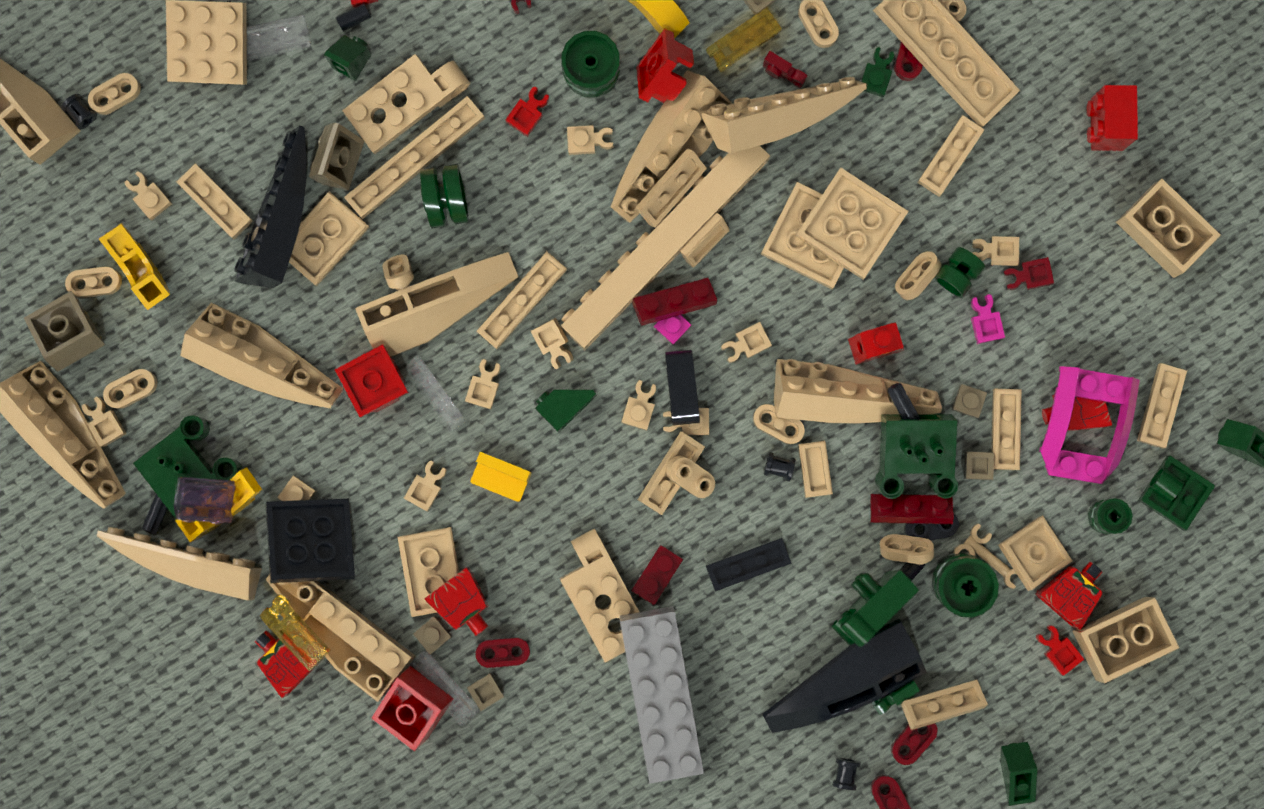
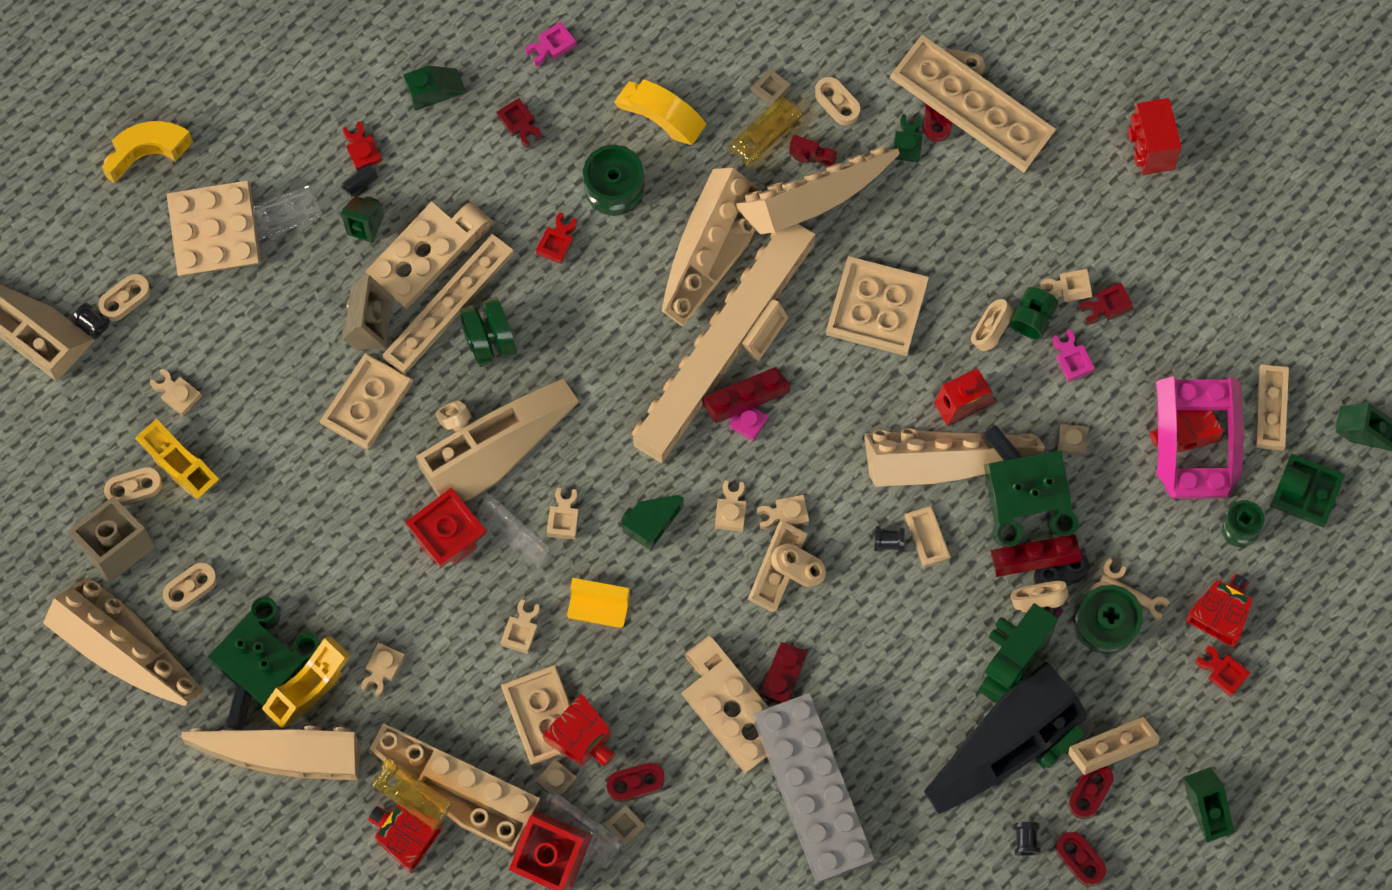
camera: 10 degrees left, 15 degrees down
(105, 426) = (168, 629): tan plate -> none
(204, 500) = (292, 673): bracket -> none
(215, 201) = (247, 384): tan plate -> none
(255, 359) = (317, 531): tan wedge -> none
(278, 220) = (318, 388): black wedge -> none
(309, 540) = (409, 699): black plate -> none
(522, 300) = (586, 425): tan tile -> none
(550, 339) = (624, 456): tan plate -> none
(583, 139) = (620, 256): tan plate -> none
(656, 67) = (683, 172): red panel -> none
(671, 188) = (720, 282): tan plate -> none
(682, 387) = (771, 477): black beam -> none
(748, 564) = (877, 644): black plate -> none
(750, 341) = (832, 421): tan plate -> none
(777, 426) = (879, 498): tan plate -> none
(852, 223) = (912, 284): tan plate -> none
(951, 156) = (1000, 204): tan plate -> none
(979, 465) = (1097, 501): dark tan plate -> none
(1006, 428) = (1117, 461): tan tile -> none
(1035, 553) = (1175, 577): tan tile -> none
(1125, 639) = (1287, 643): tan brick -> none
(1168, 228) = (1235, 232): tan brick -> none

